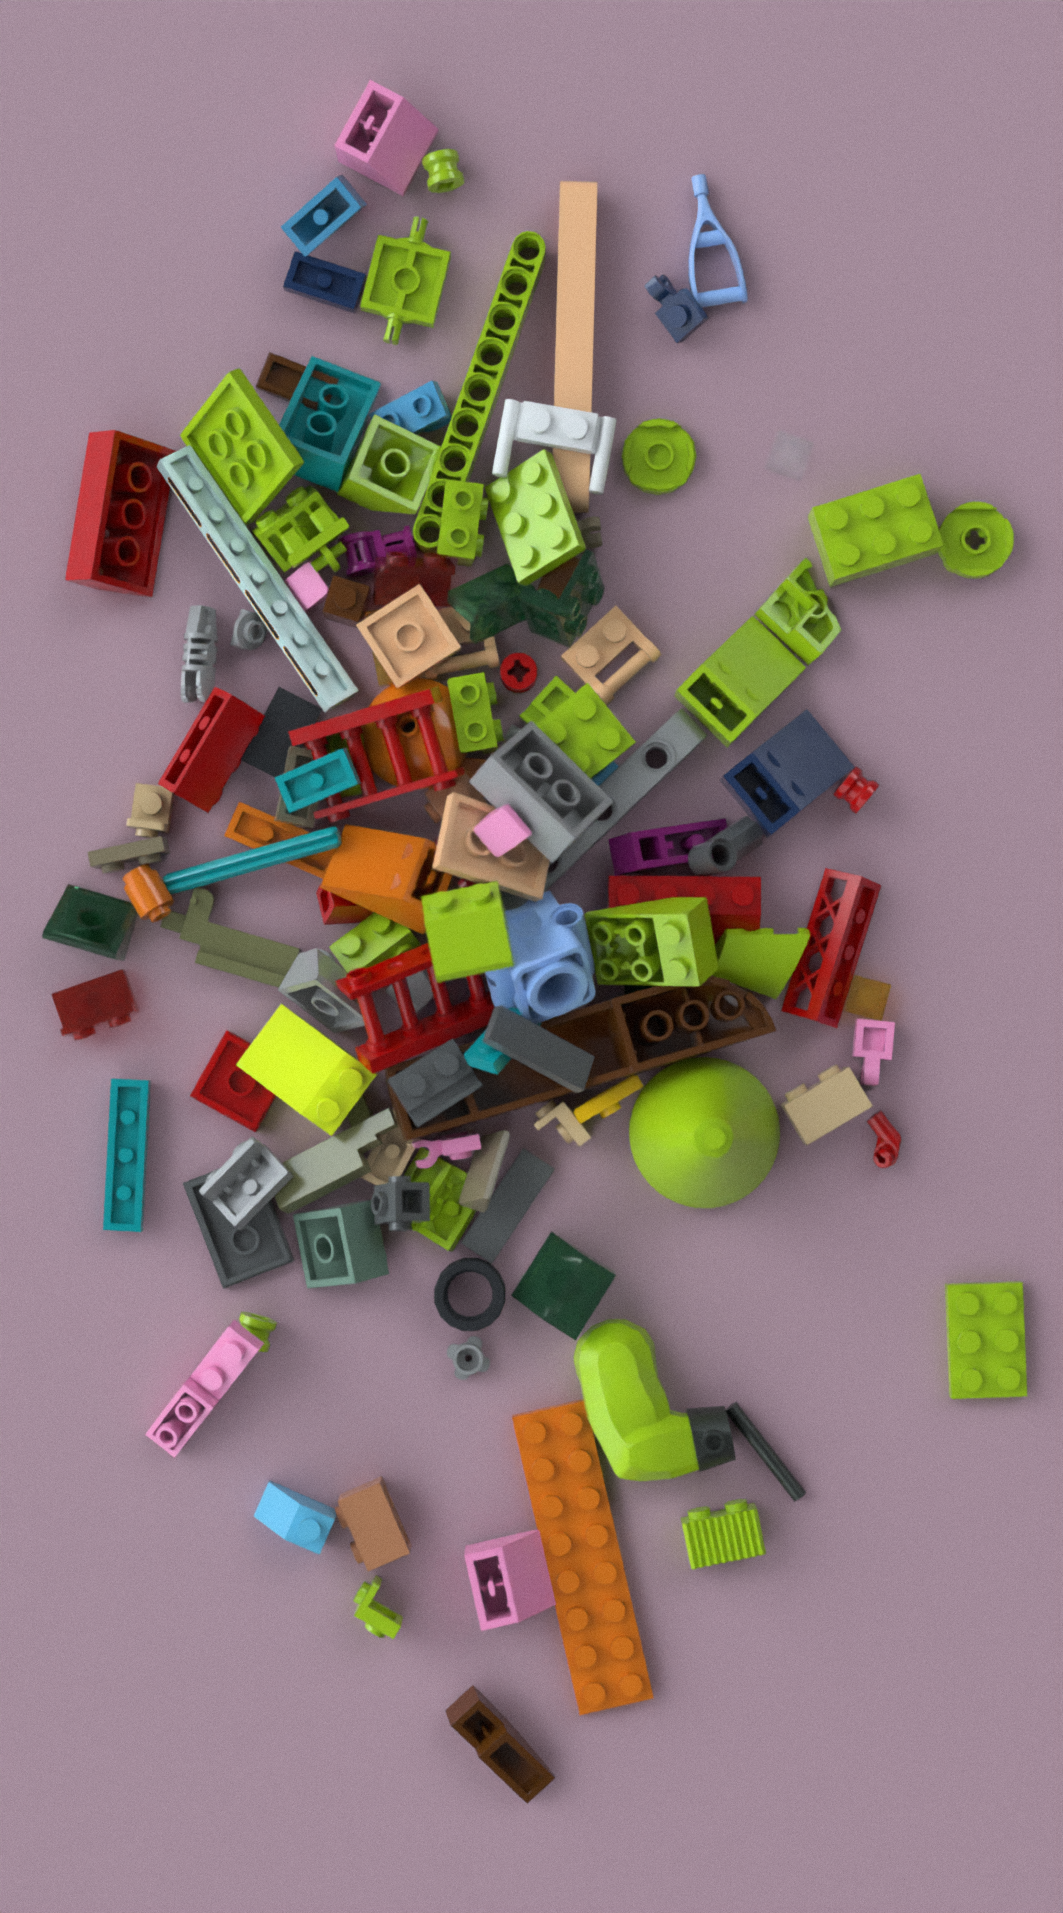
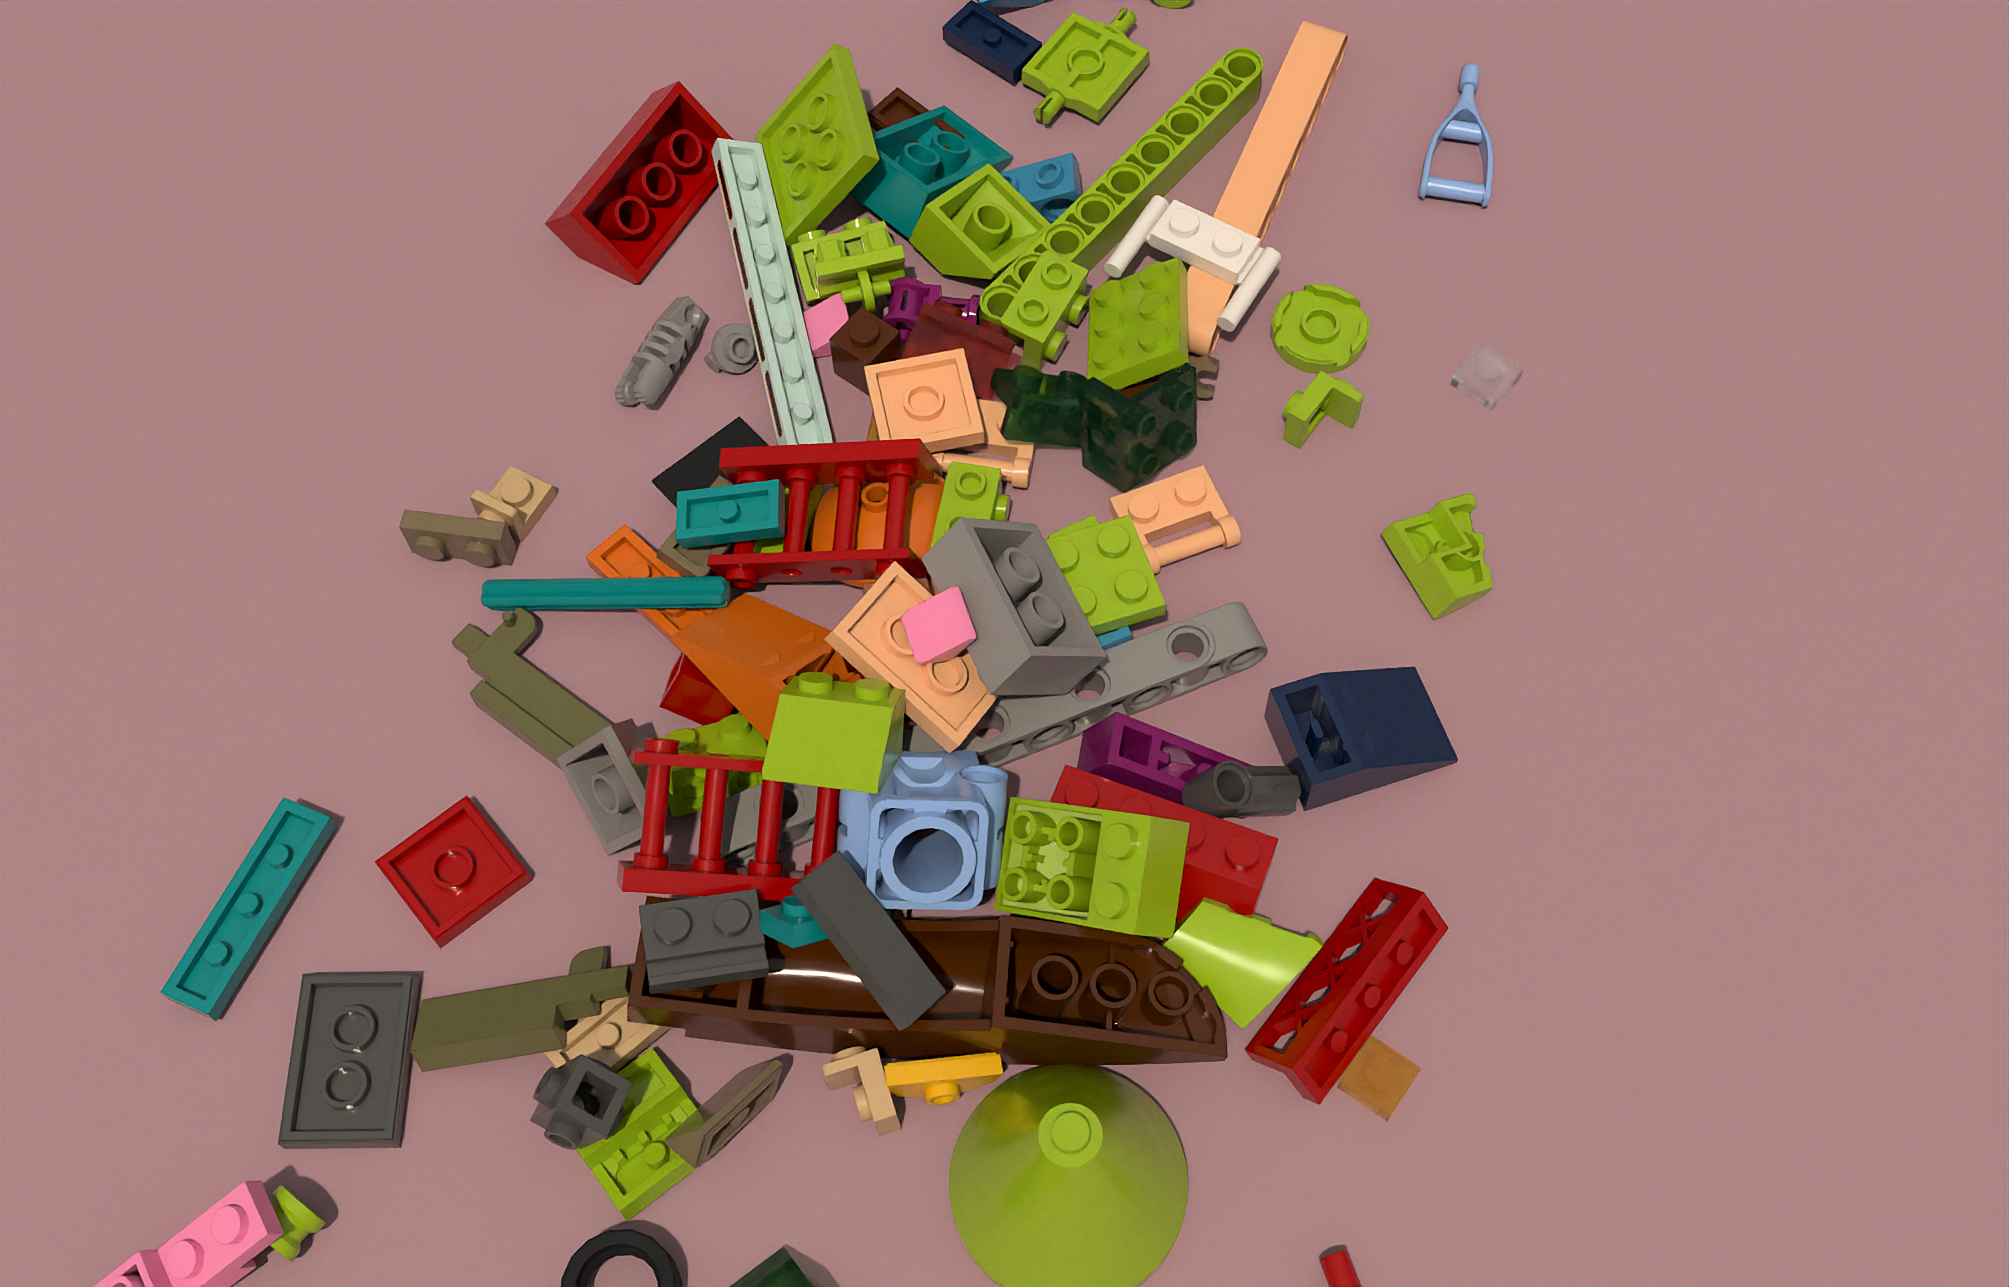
camera: 20 degrees right, 25 degrees down
(92, 922) = (366, 606): clear green slope -> none
(95, 1003) = (318, 705): clear red bracket -> none
(148, 893) = (456, 592): orange brick -> none
(211, 749) = (620, 454): red brick -> none
(246, 1182) = (382, 992): light grey bracket -> none
(306, 1069) = (545, 878): neon yellow slope -> none
(340, 1245) = (472, 1142): sand green slope -> none
(456, 1145) = (700, 1059): bright pink plate -> none
(507, 1205) = (735, 1182): dark grey tile -> none
(519, 680) = (1056, 508): red wheel -> none
(672, 534) = (1321, 398): none -> lime bracket
(679, 309) = (1401, 185): dark blue plate -> none
(739, 681) = (1329, 600): lime slope -> none
(825, 1104) = (1265, 1201): tan brick -> none
(856, 789) = (1451, 786): red wheel -> none
(873, 1043) = (1367, 1146): bright pink plate -> none
(875, 530) = (1575, 484): lime brick -> none
(990, 525) = (1701, 568): lime plate -> none

